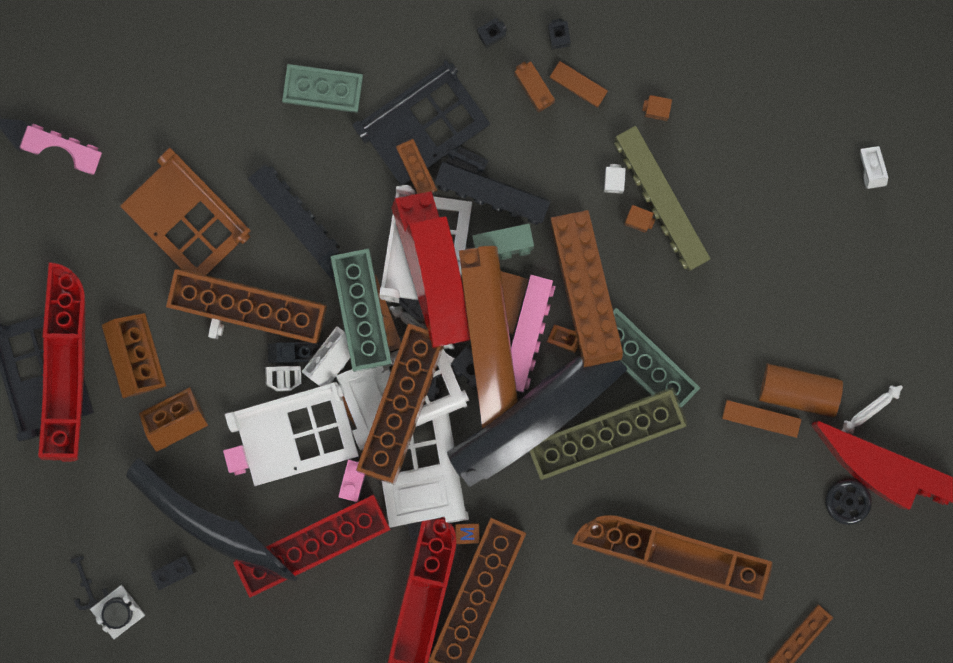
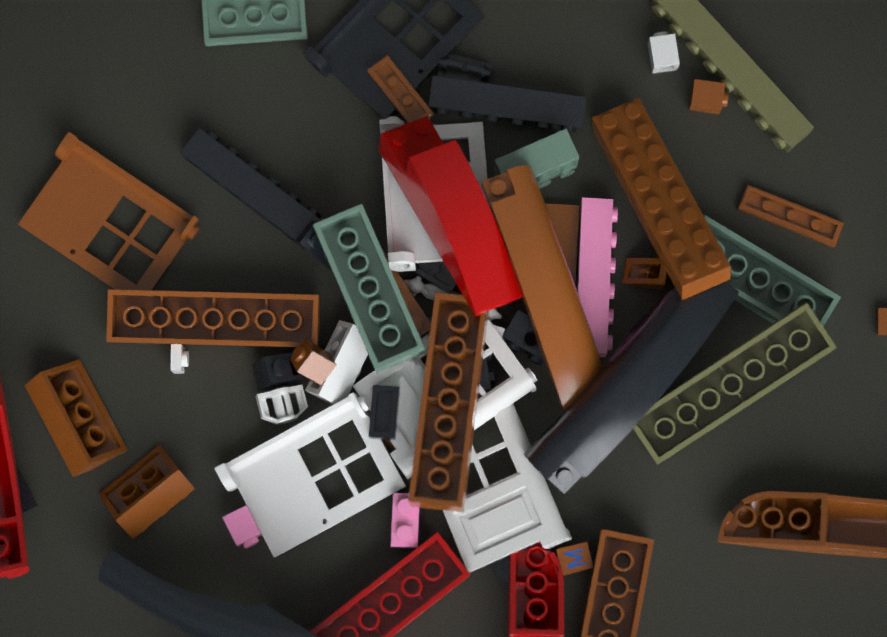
camera: 10 degrees left, 5 degrees down
(310, 353) = (313, 361): none -> brick
(354, 400) = (384, 412): none -> black tile
(679, 319) = (790, 216): none -> dark orange tile

